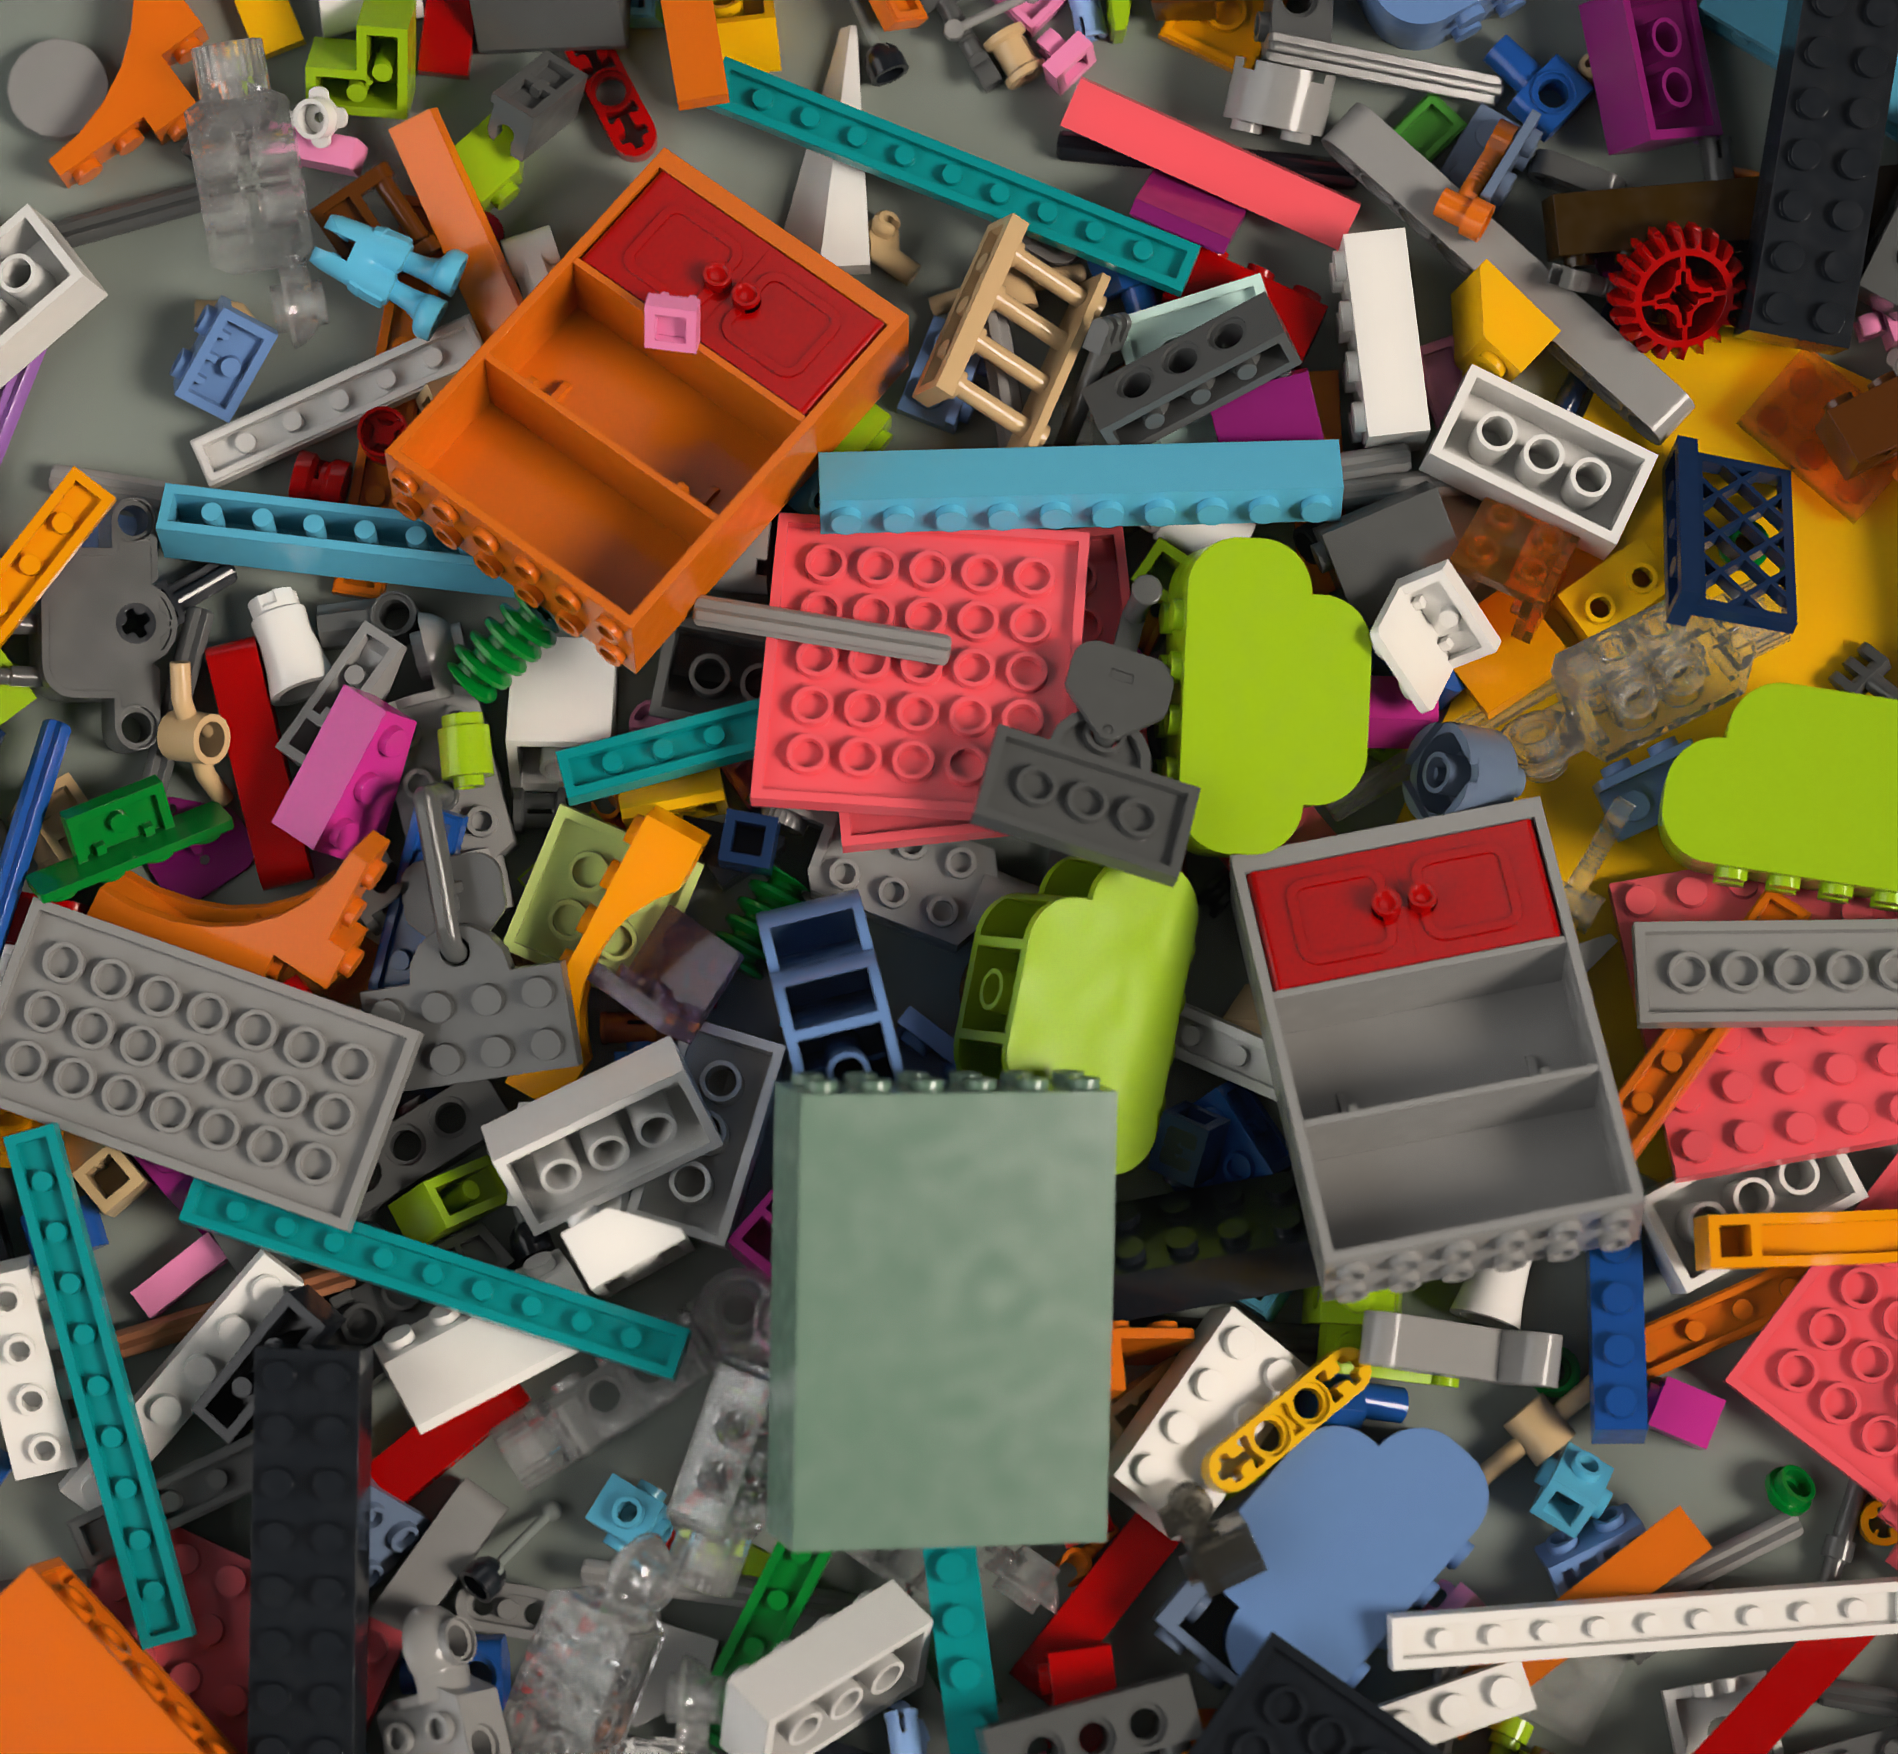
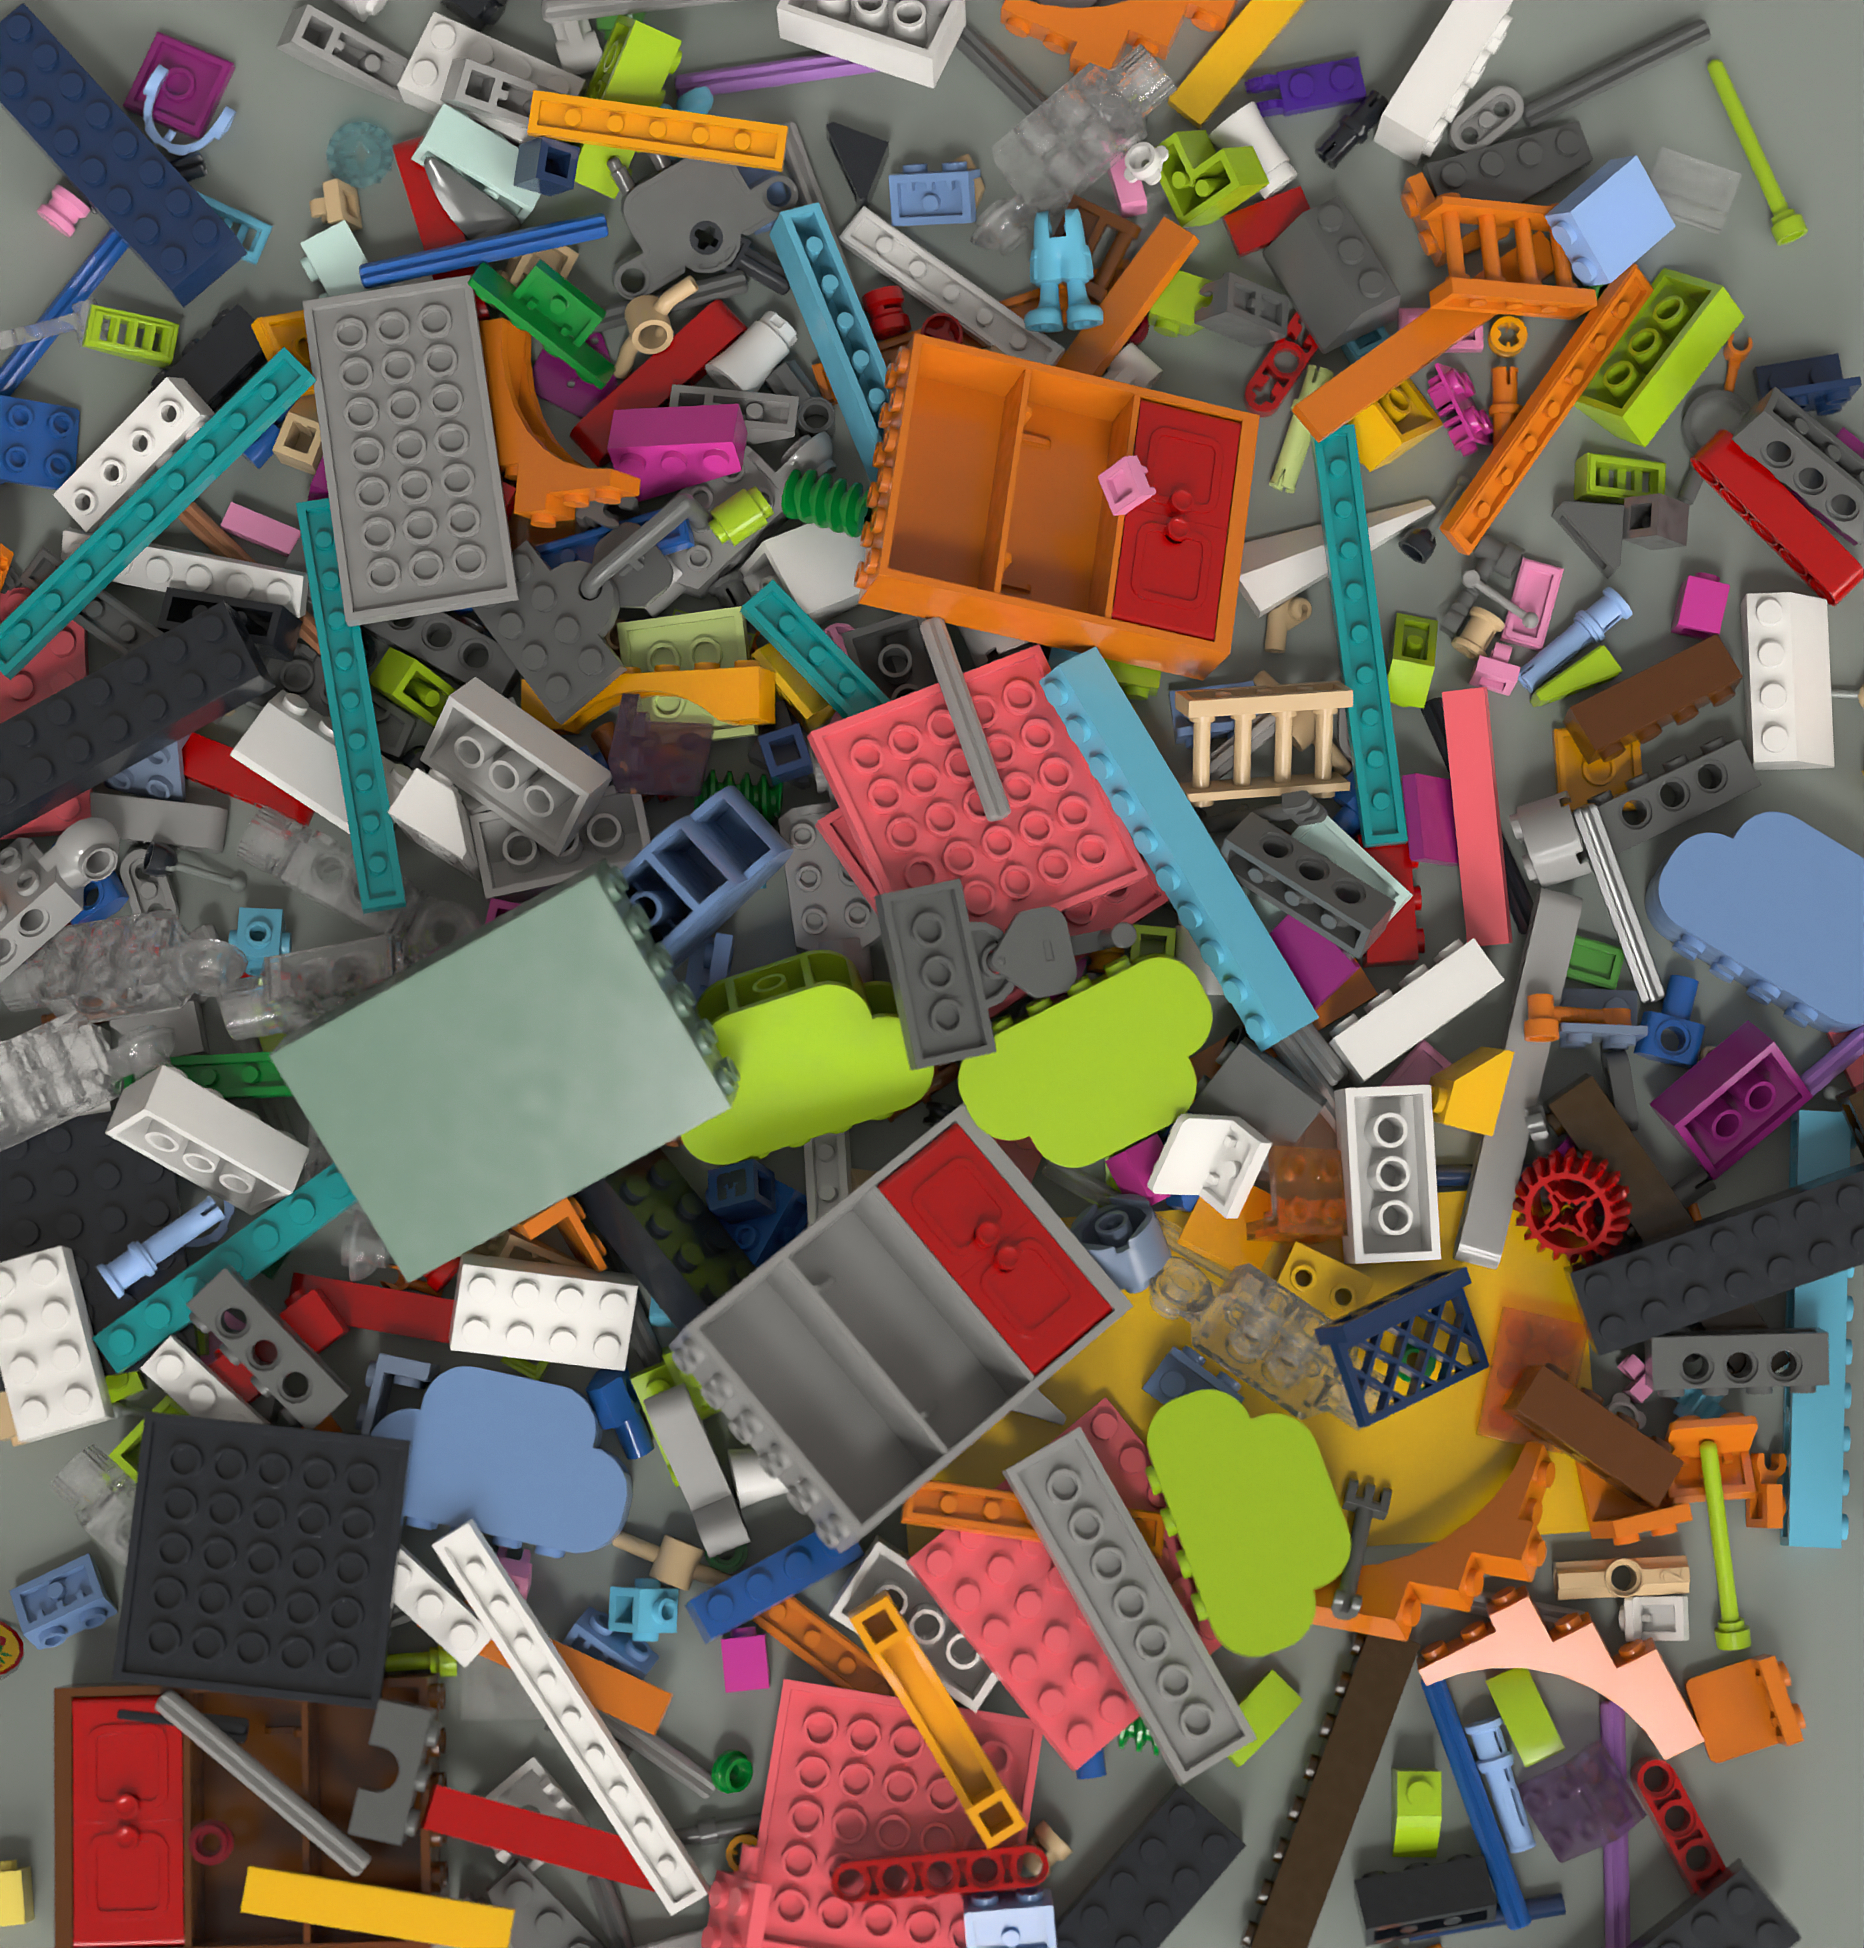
camera: 60 degrees right, 0 degrees up
(135, 418) = (859, 158): none -> black slope
(696, 122) = (1297, 436): none -> yellowish green pin
(1004, 136) = (1411, 660): none -> lime slope
(1216, 1552) = (447, 1368): clear smoke brick -> none
(1282, 1415) = (571, 1375): yellow beam -> none
(1582, 902) = (1080, 1377): clear brick -> none

